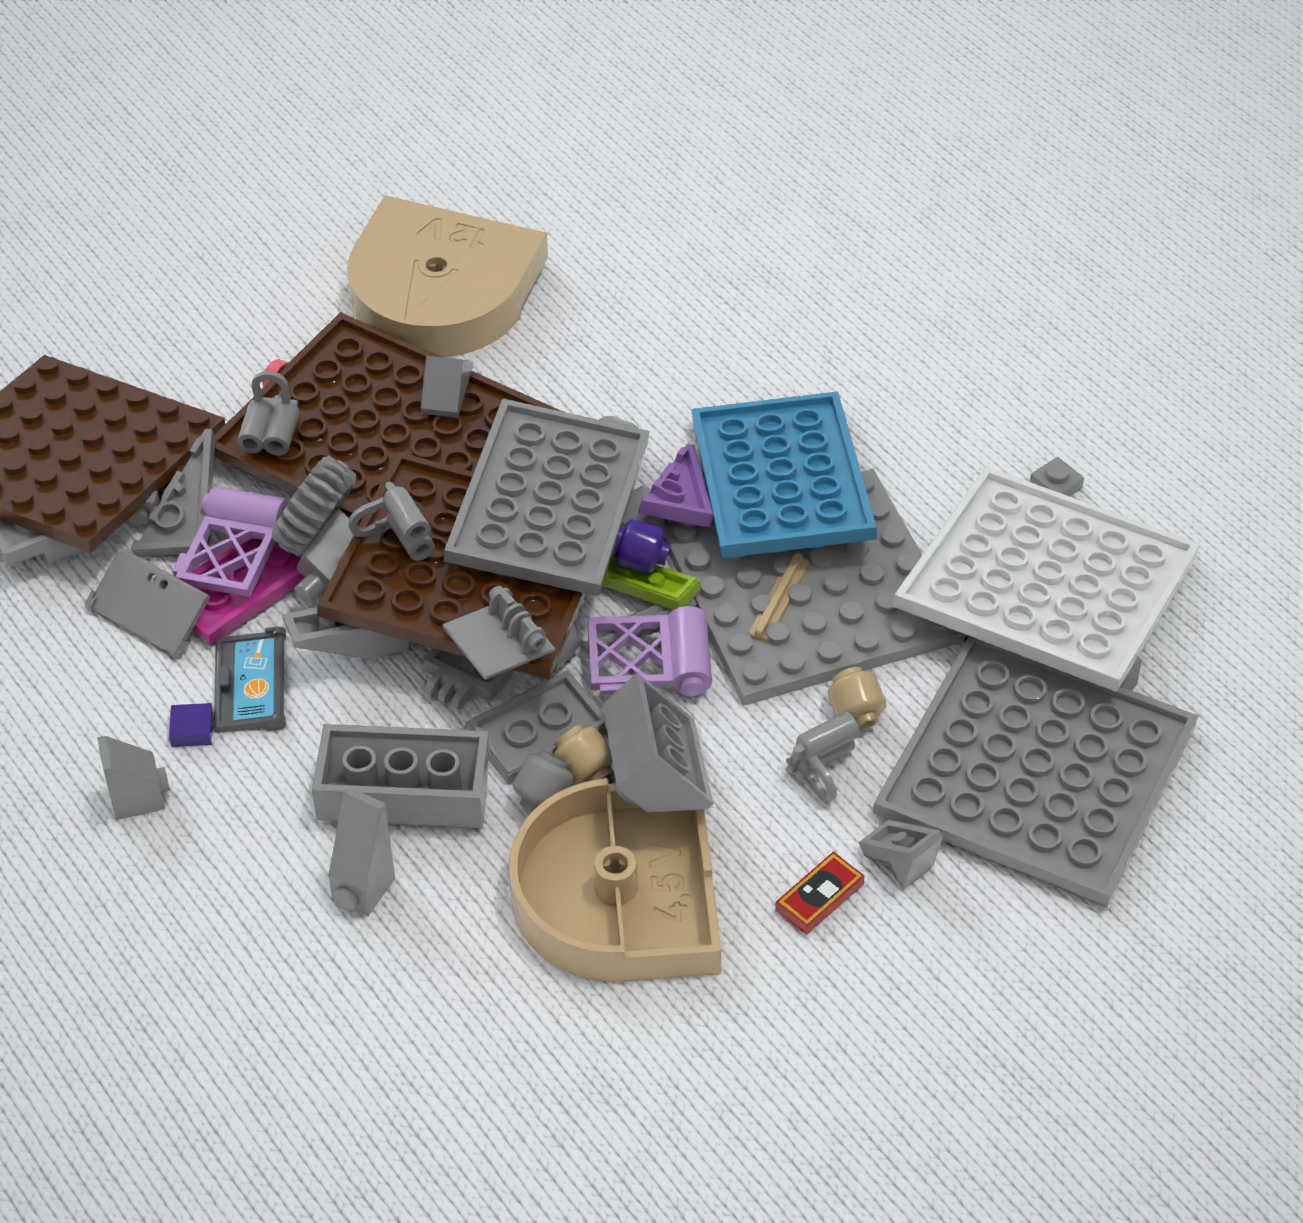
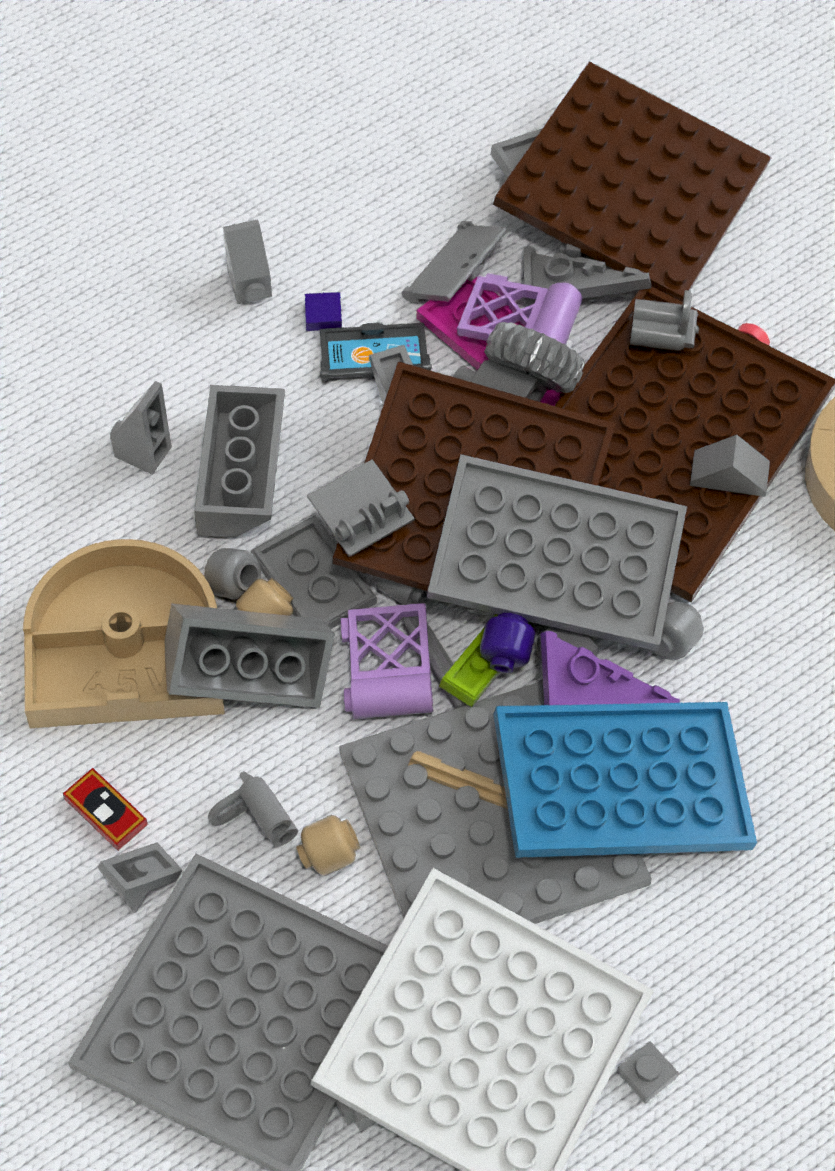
camera: 90 degrees right, 10 degrees up
(403, 518) = (496, 417): light grey piece -> none

